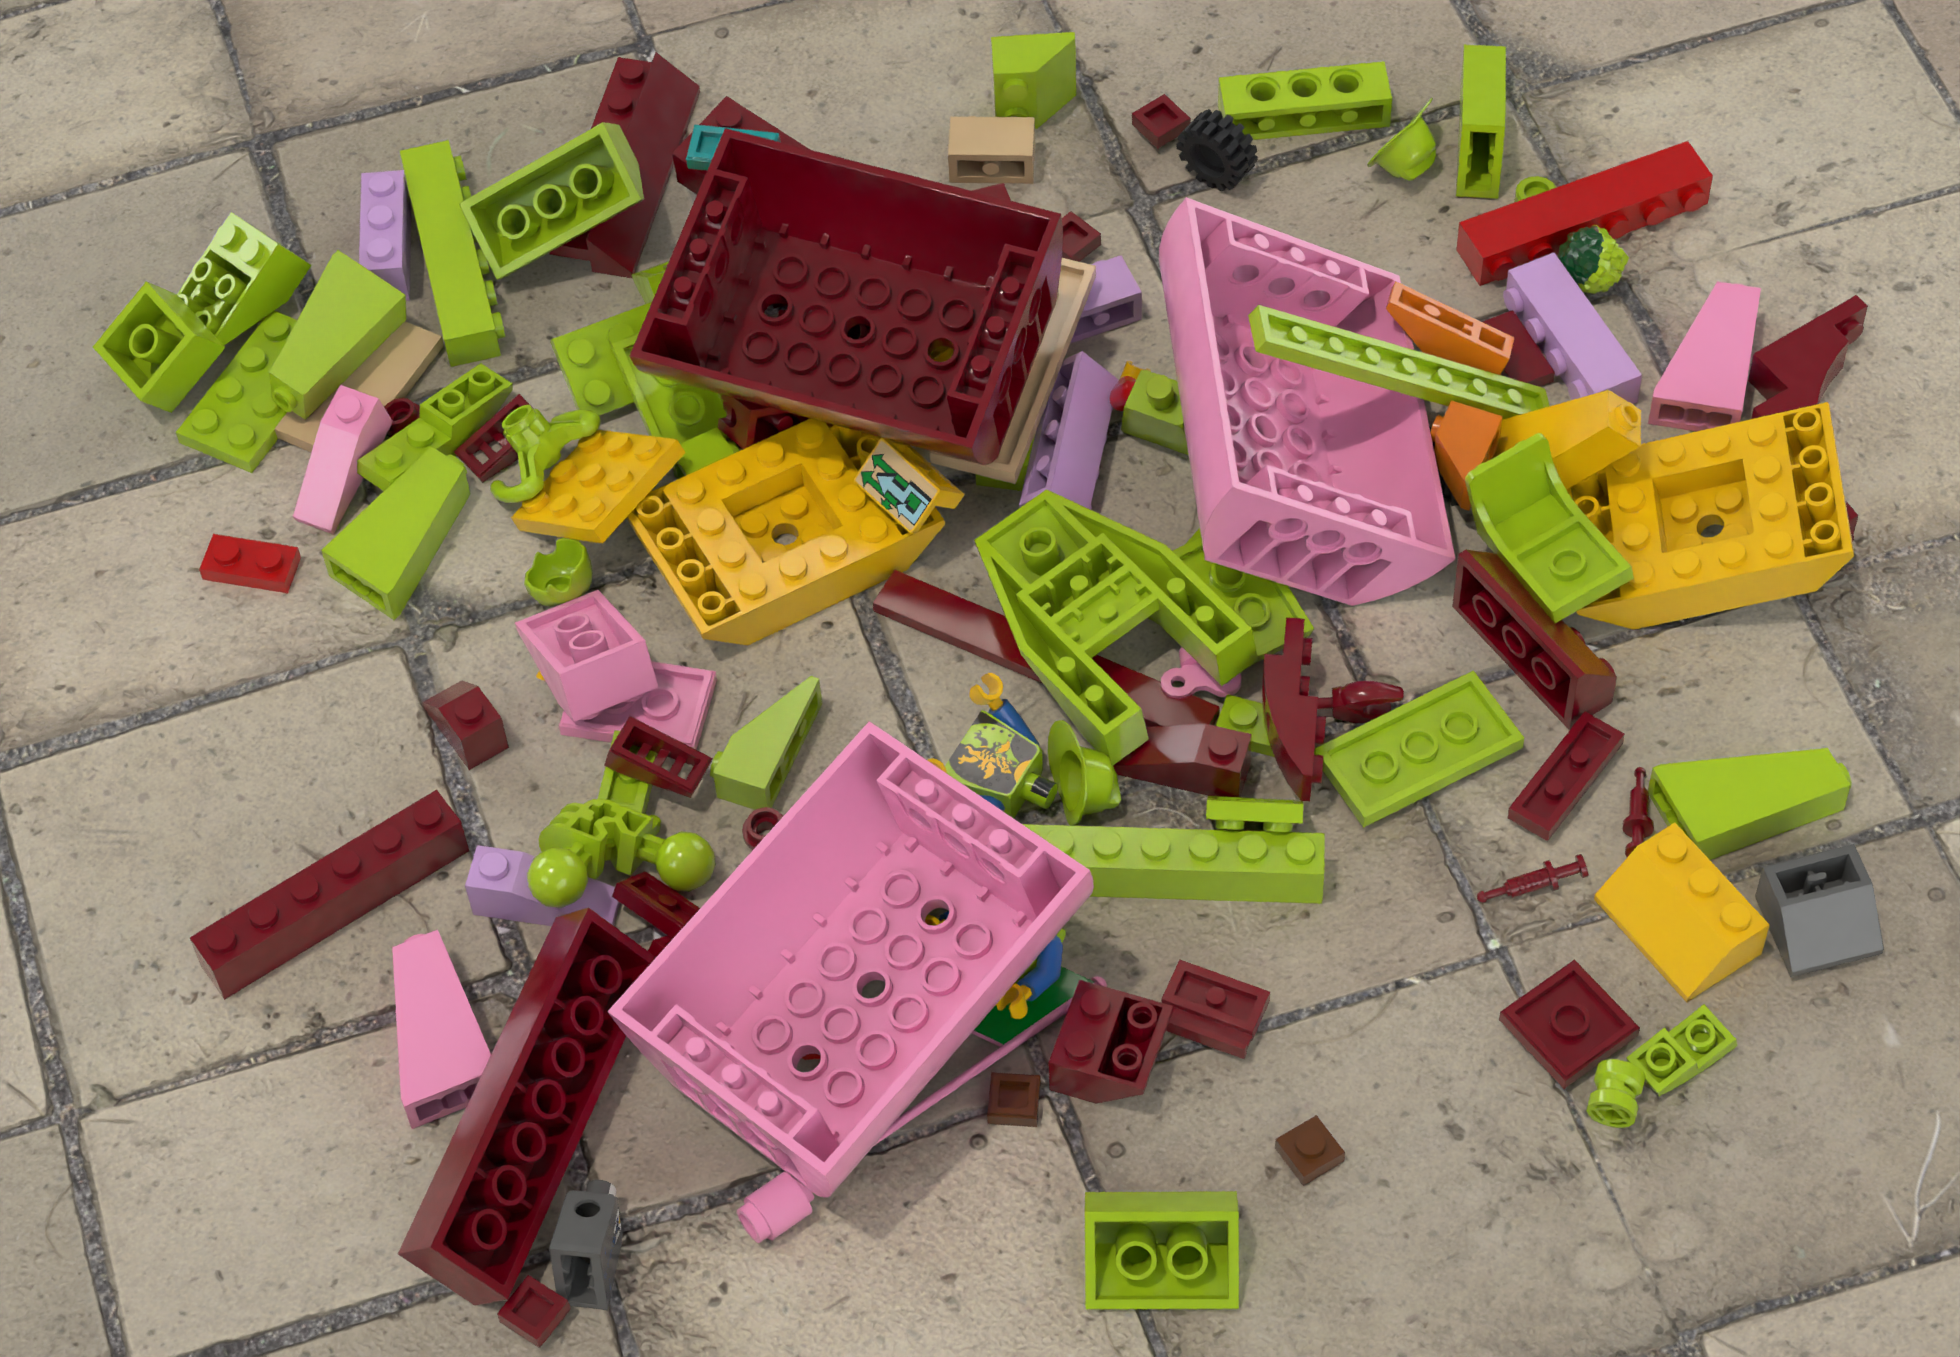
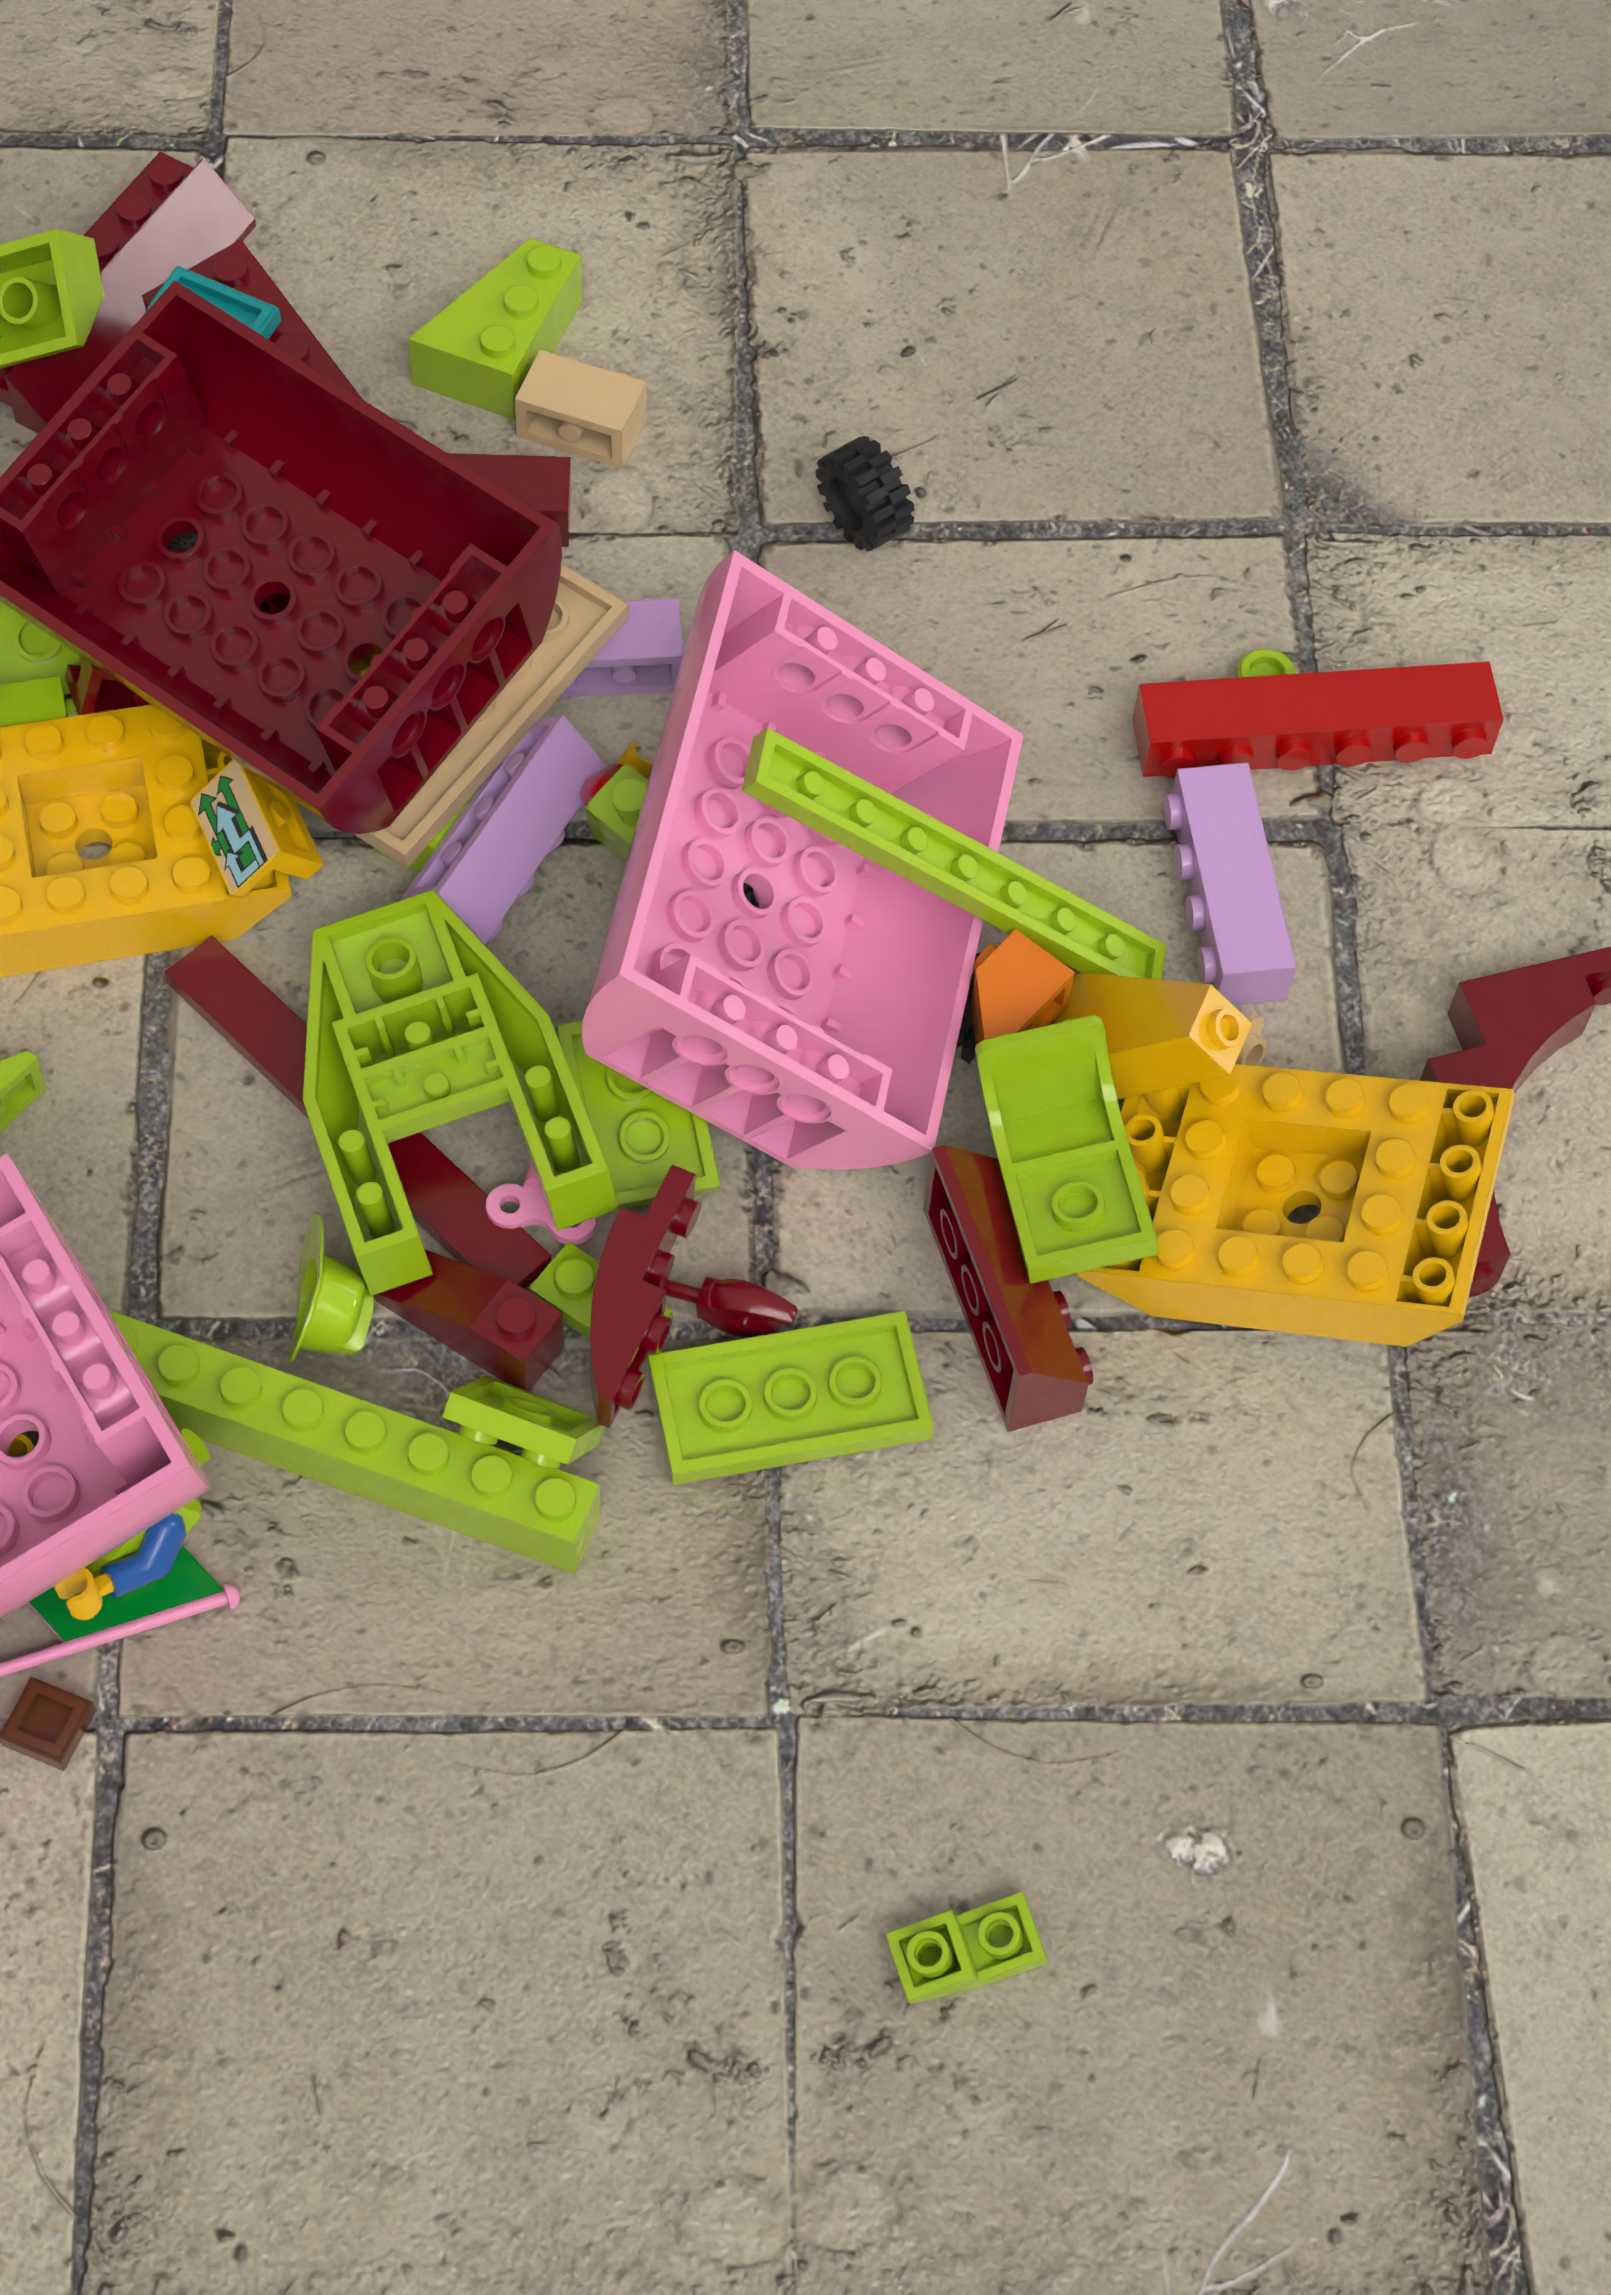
camera: 10 degrees right, 5 degrees up
(912, 113) = (493, 331): none -> lime wedge
(1000, 755) = (214, 1248): torso -> none
(1033, 74) = (667, 326): lime slope -> none
(1078, 238) = (632, 557): dark red plate -> none
(1107, 1044) = (190, 1688): dark red slope -> none
(1160, 121) = (813, 431): dark red plate -> none
(1162, 1250) = (140, 2008): lime slope -> none
(1214, 1008) = (358, 1681): dark red plate -> none
(1308, 100) = (1011, 461): lime brick -> none
(1309, 1150) = (406, 1926): reddish brown plate -> none
(1409, 151) = (1117, 566): lime piece -> none
(1448, 332) = (1054, 832): orange slope -> none
(1481, 121) = (1229, 554): lime slope -> none
(1526, 359) = (1148, 880): dark red tile -> none
(1537, 879) = (871, 1635): dark red piece -> none
(1566, 776) = (970, 1499): dark red plate -> none
(1569, 1024) = (829, 1859): dark red plate -> none
(1593, 259) = (1296, 786): piece -> none
(1617, 1087) = (848, 1983): lime wheel -> none
(1638, 823) = (1042, 1597): dark red piece -> none
(1682, 913) = (1045, 1749): yellow slope -> none
(1711, 366) = (1399, 981): bright pink slope -> none
(1748, 798) = (1201, 1611): lime slope -> none
(1820, 910) = (1235, 1809): slope -> none

